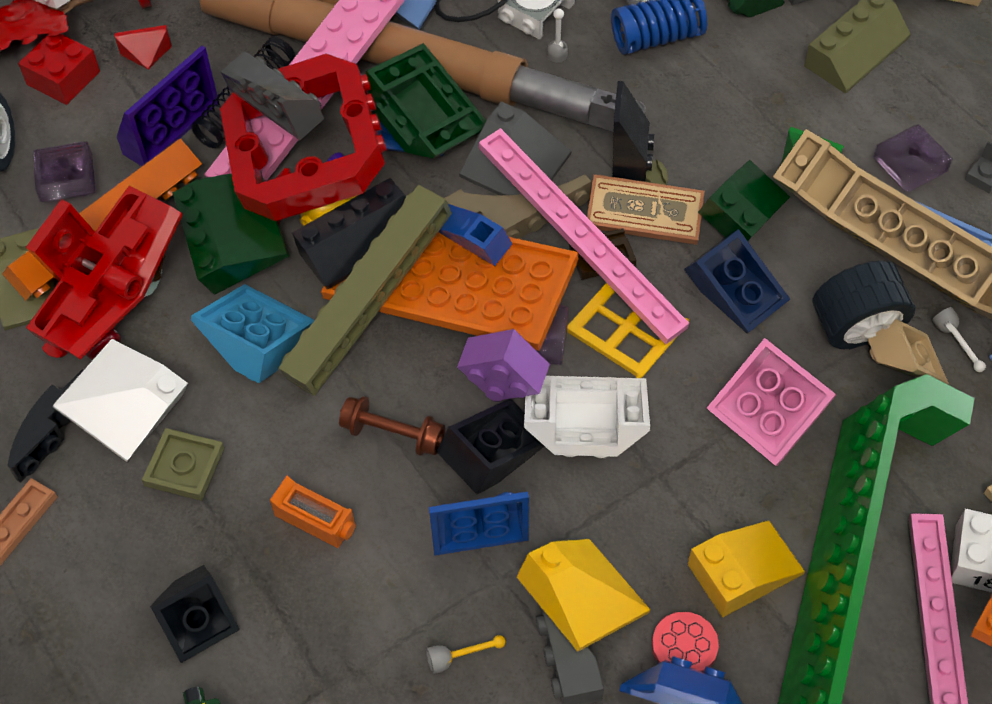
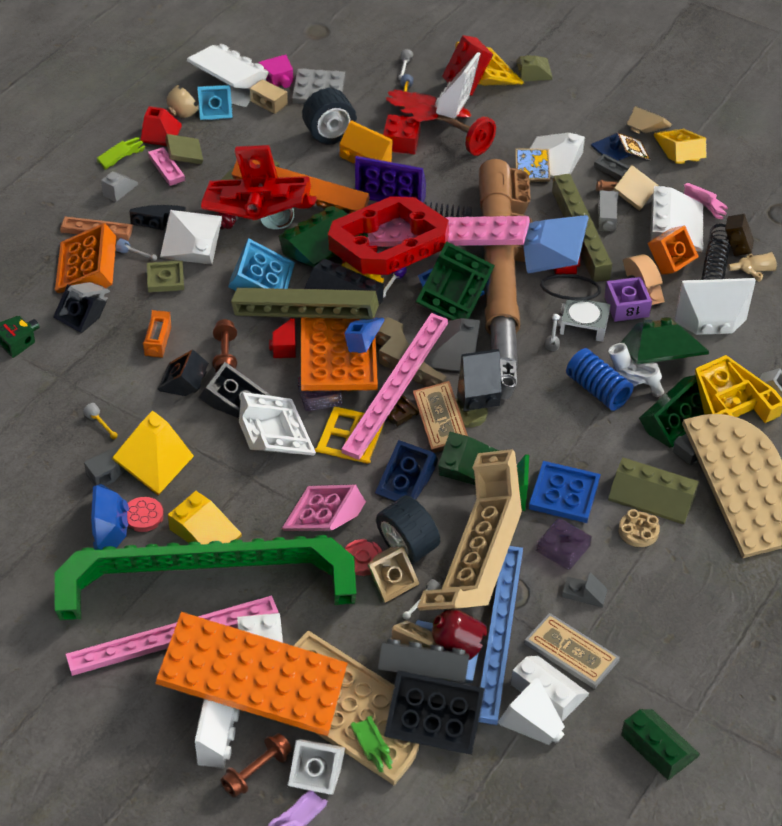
camera: 65 degrees right, 10 degrees down
(64, 171) = (329, 163): clear purple brick -> none
(69, 112) = (364, 143): none -> light orange slope
(78, 504) = (123, 246): none -> hinge
(82, 573) = (87, 258): none -> orange slope
(144, 45) = (441, 162): slope -> none
(181, 580) = (89, 289): none -> light grey arm
(273, 95) = (399, 206): dark grey wedge -> none
(410, 494) = (184, 374): none -> black slope
(412, 343) = (284, 341): none -> red slope
(480, 523) = (176, 398): blue slope -> none
(503, 365) = (279, 375): medium lavender brick -> none
(830, 118) = (564, 491): none -> blue plate
(859, 381) = (363, 554): none -> coral tile
(907, 79) = (639, 528): none -> tan tile

